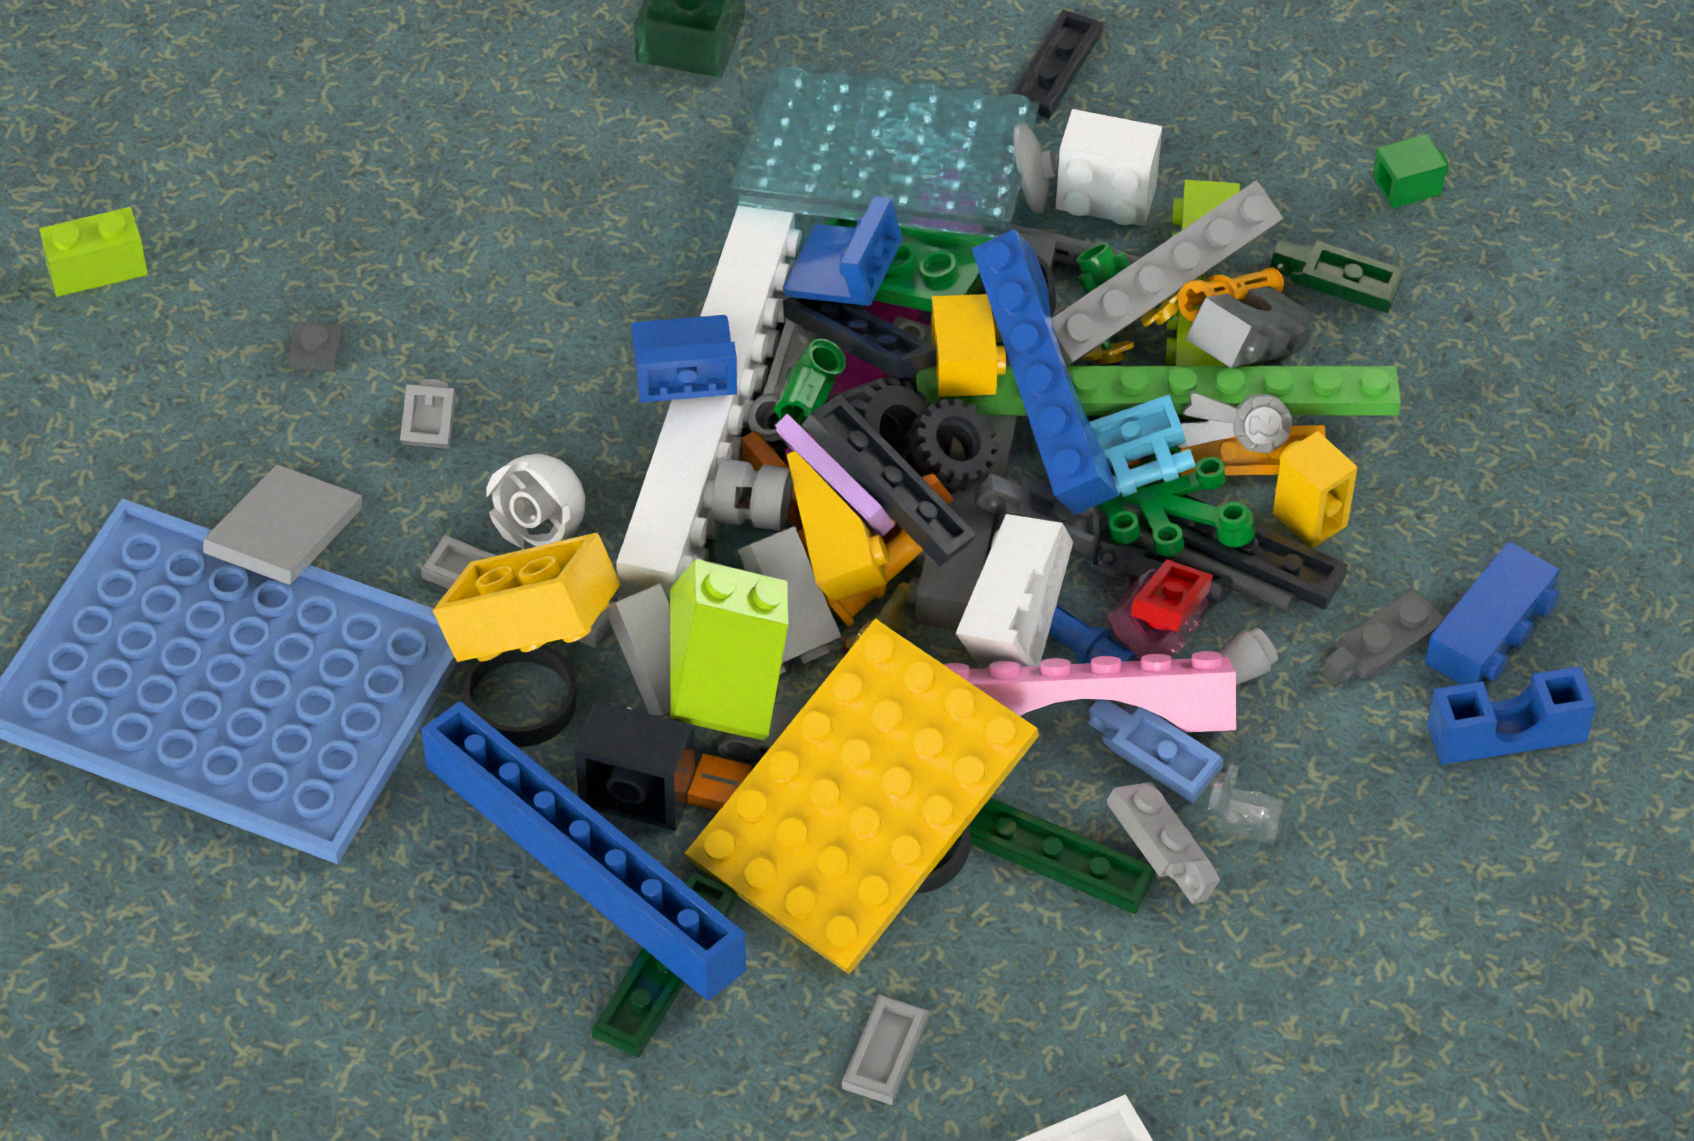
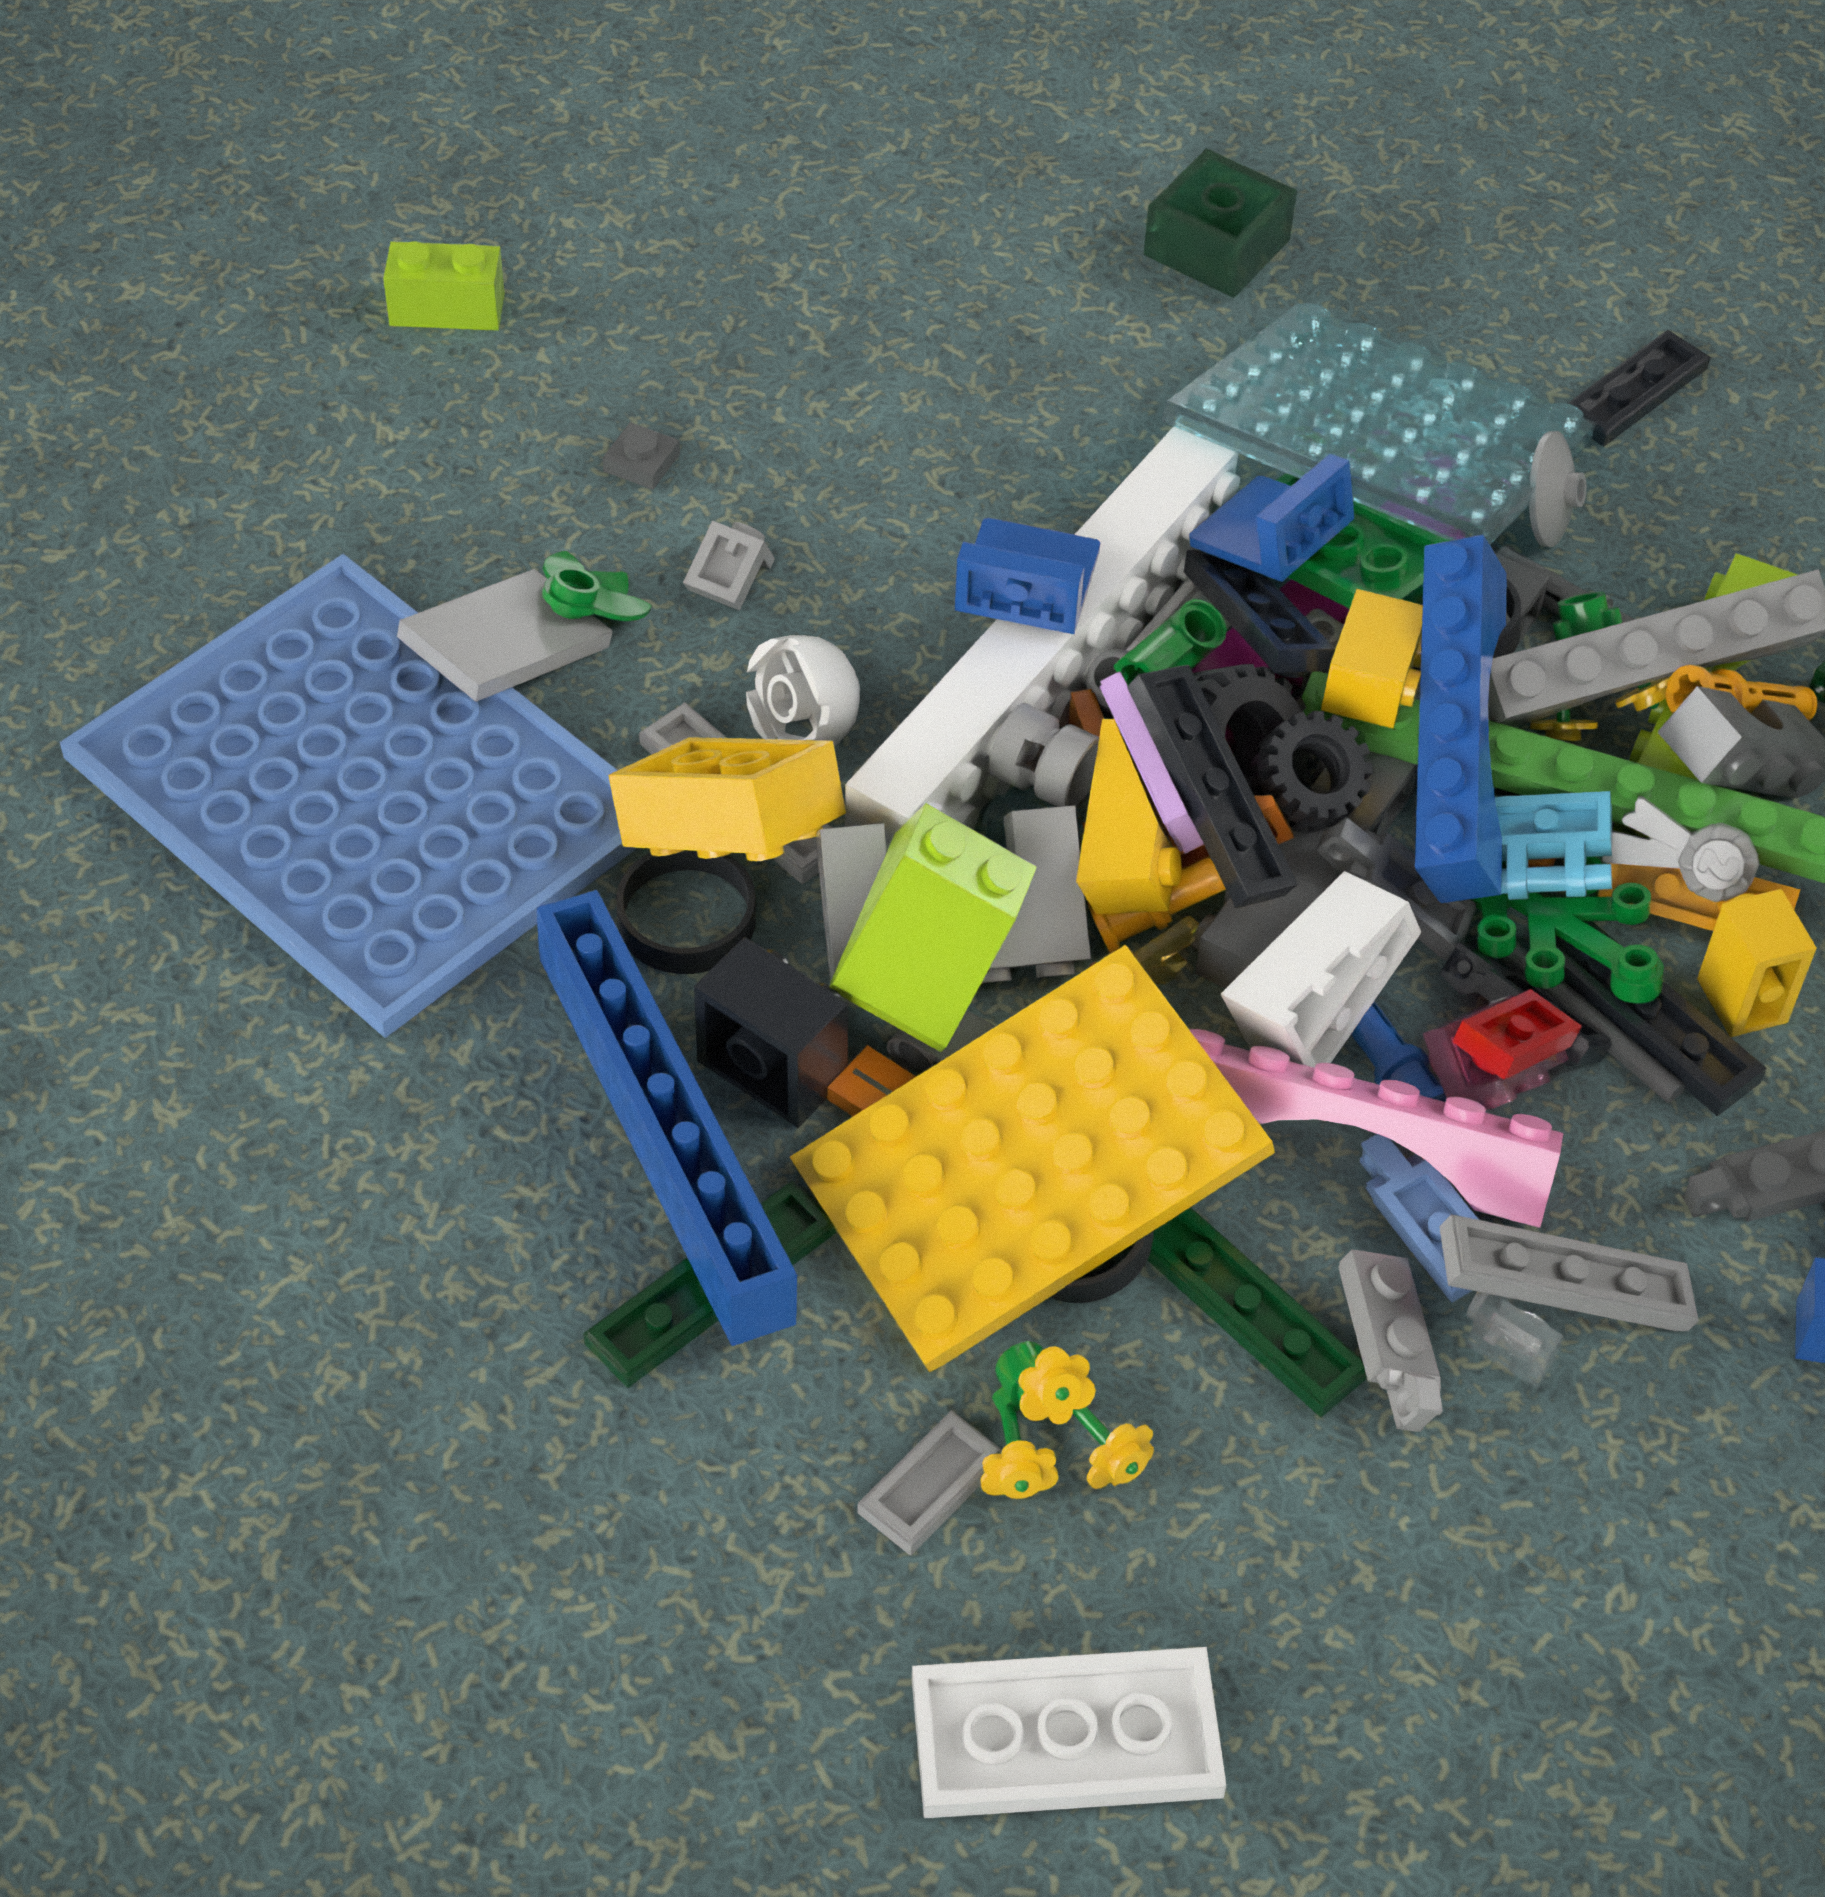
camera: 20 degrees right, 0 degrees up
(331, 470) = (582, 592): none -> green plate
(953, 954) = (1055, 1387): none -> yellow plant
(1108, 167) = (1646, 513): white brick -> none
(1250, 654) = (1593, 1142): light grey cone -> none
(1269, 756) = (1567, 1274): none -> light grey tile

